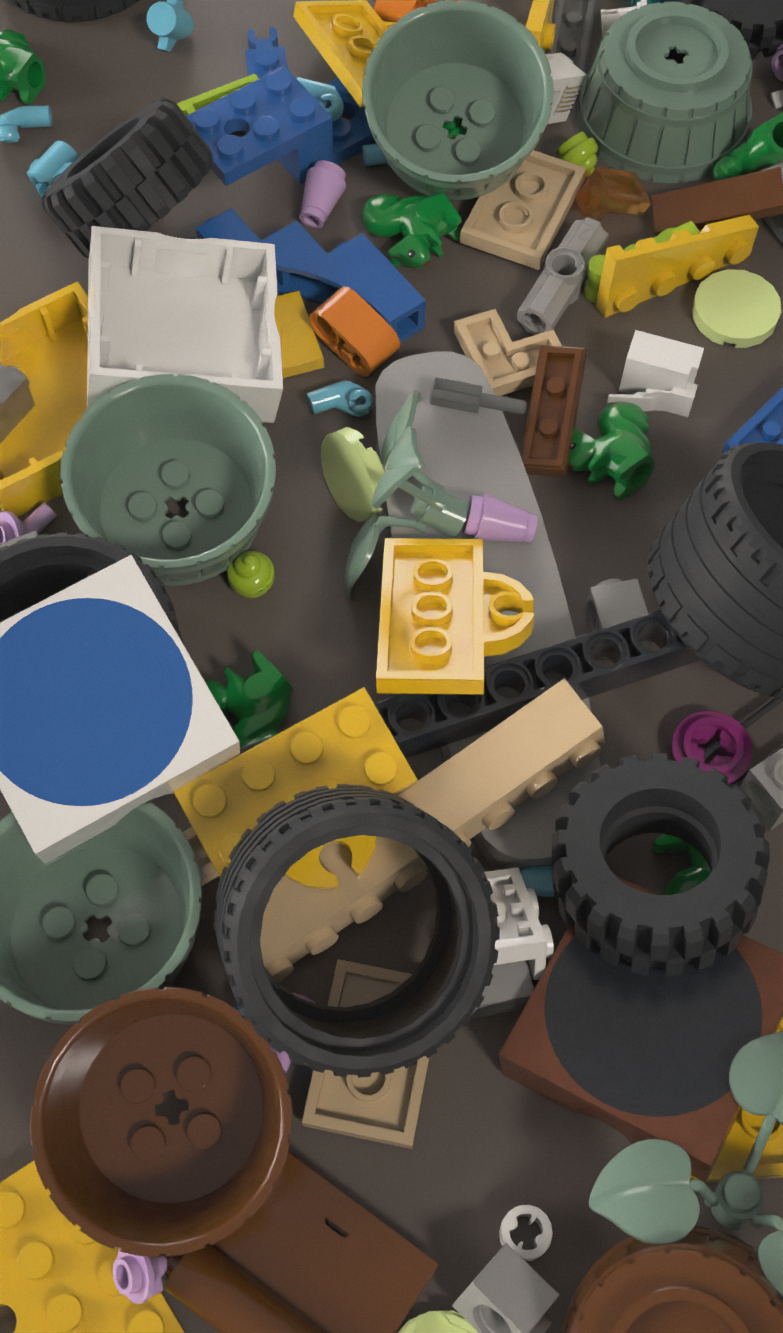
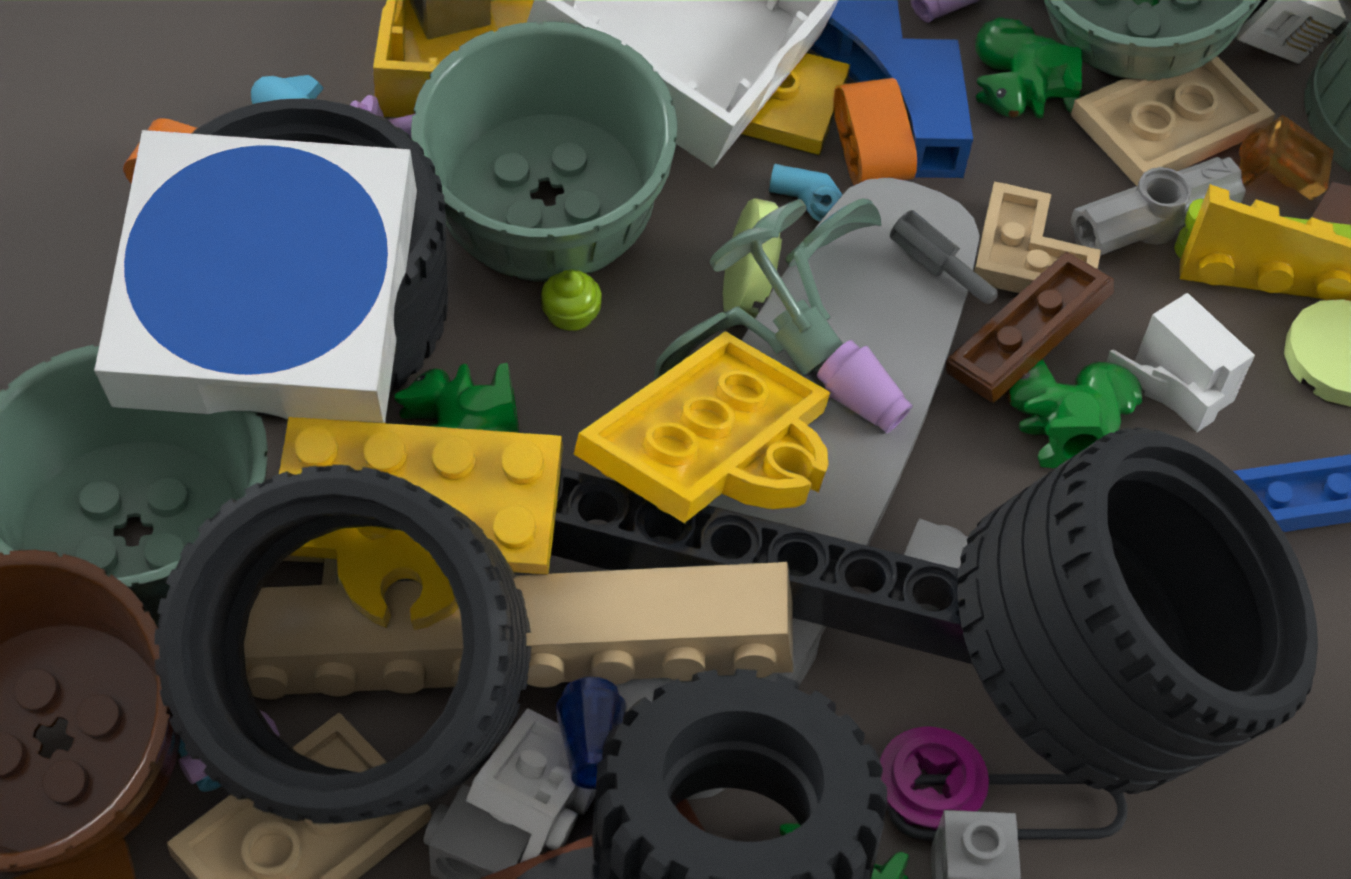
camera: 30 degrees right, 10 degrees down
(516, 865) = (585, 719): none -> clear blue cone
(580, 151) = (1282, 93): lime plate -> none

